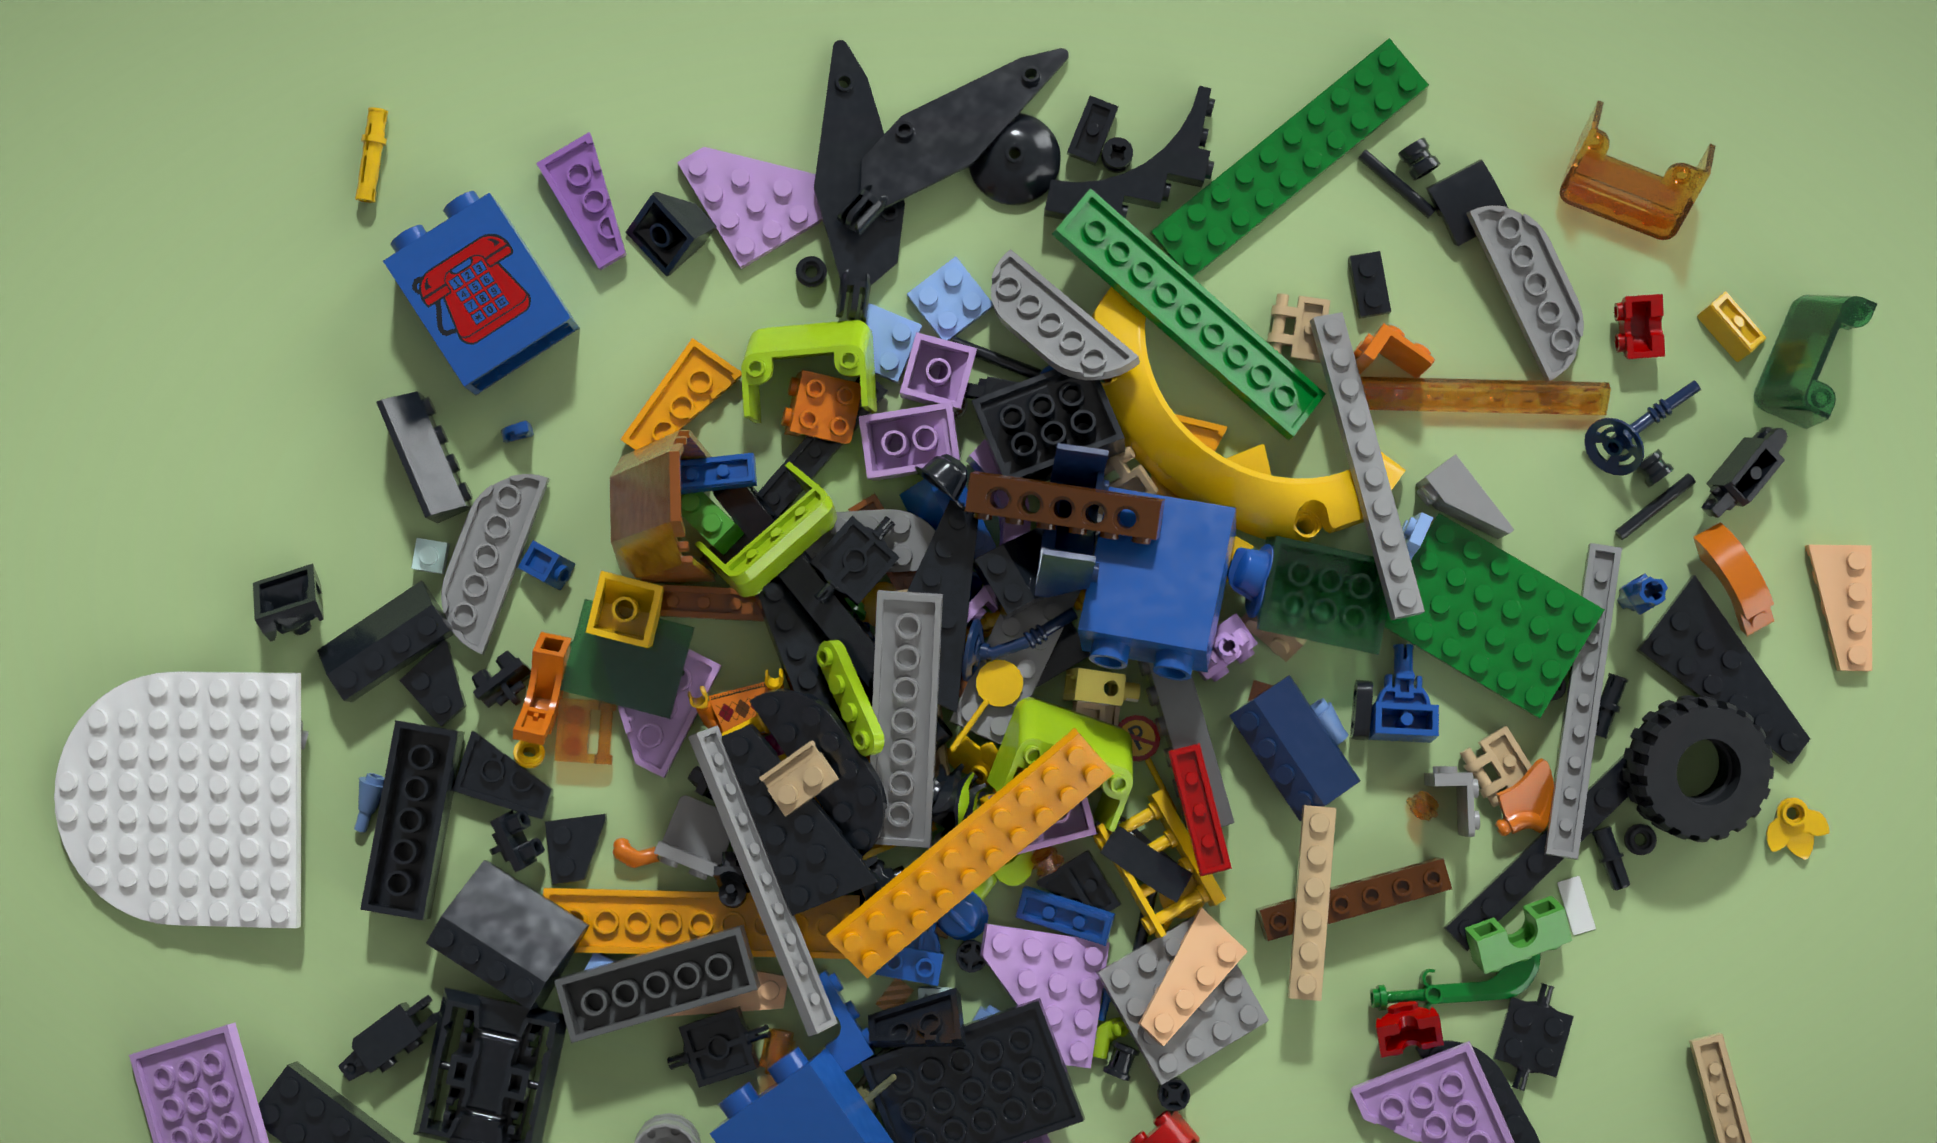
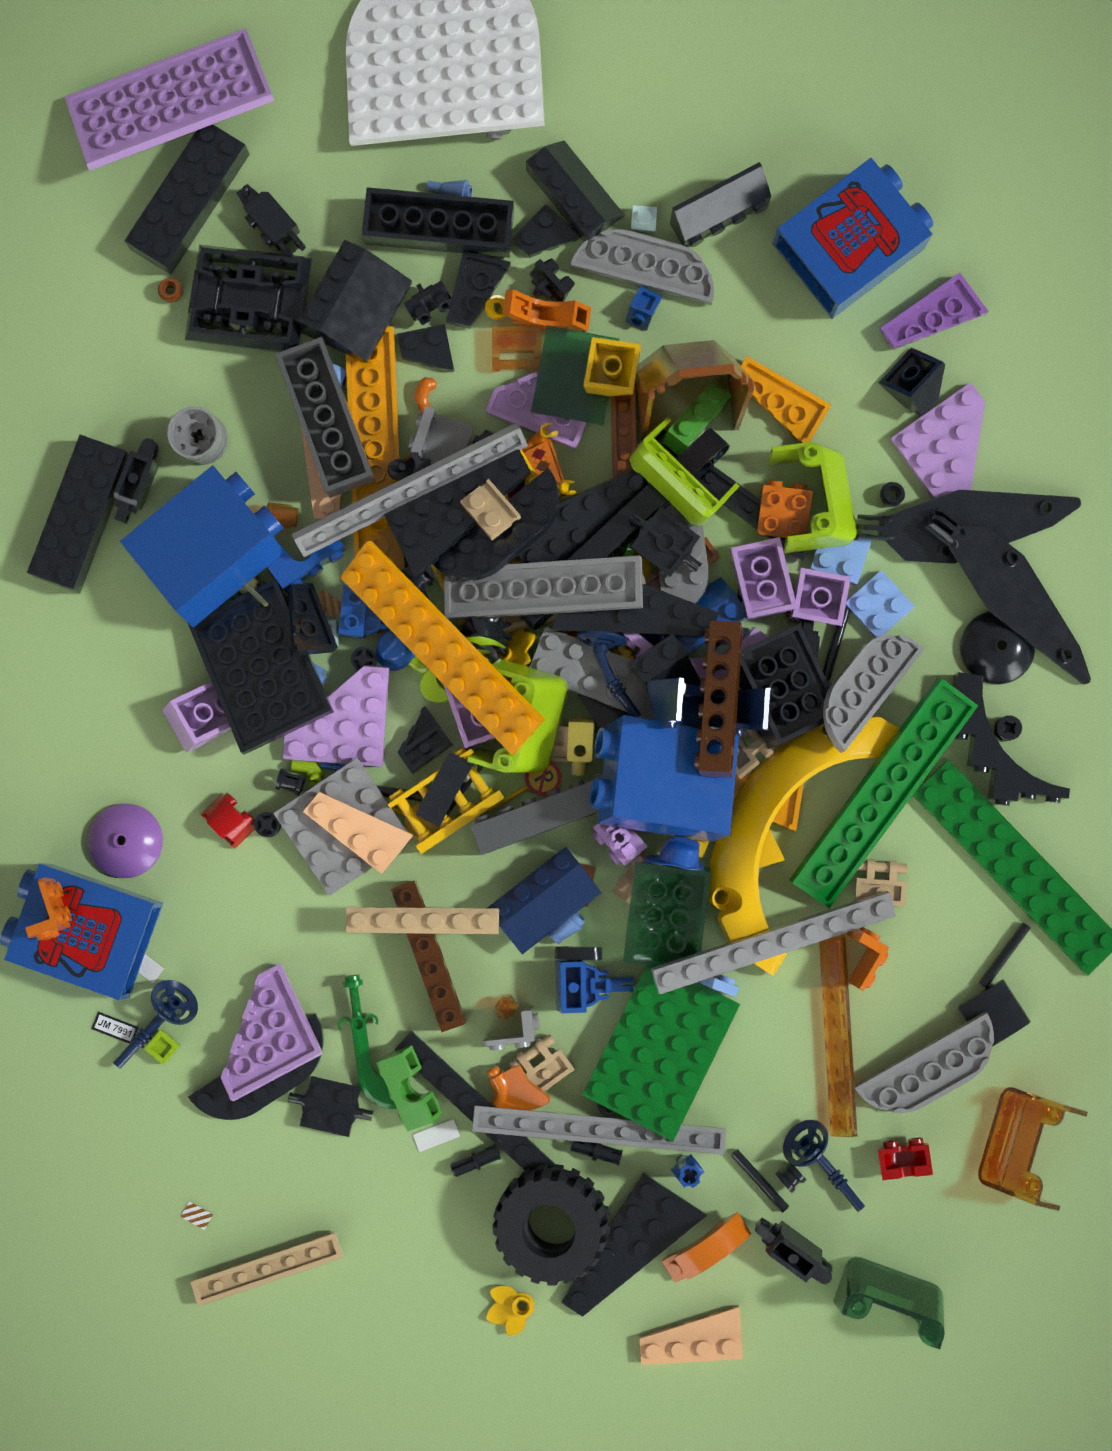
camera: 85 degrees right, 0 degrees up
(288, 602) = (598, 112): black brick -> none
(371, 156) = (955, 146): yellow pin -> none
(517, 431) = (746, 277): blue tile -> none
(718, 473) = (722, 417): blue tile -> none
(719, 1047) = (280, 470): black plate -> none
(850, 697) = (556, 545): lime plate -> none
(946, 475) = (737, 607): black piece -> none
(998, 685) = (575, 662): yellow piece -> none
(1046, 860) = (441, 712): clear orange plate -> none
(1065, 915) = (400, 730): blue tile -> none
(1092, 130) = (1026, 707): black plate -> none
(1199, 809) = (488, 825): red tile -> none
(1369, 284) = (920, 938): black plate -> none
(1408, 1026) = (331, 1004): red cylinder -> none
(1416, 152) = (1026, 971): black wheel -> none
(1459, 495) = (756, 1017): light grey slope -> none
(1649, 843) = (489, 1191): black plate -> none
(1731, 327) = (911, 1235): yellow slope -> none

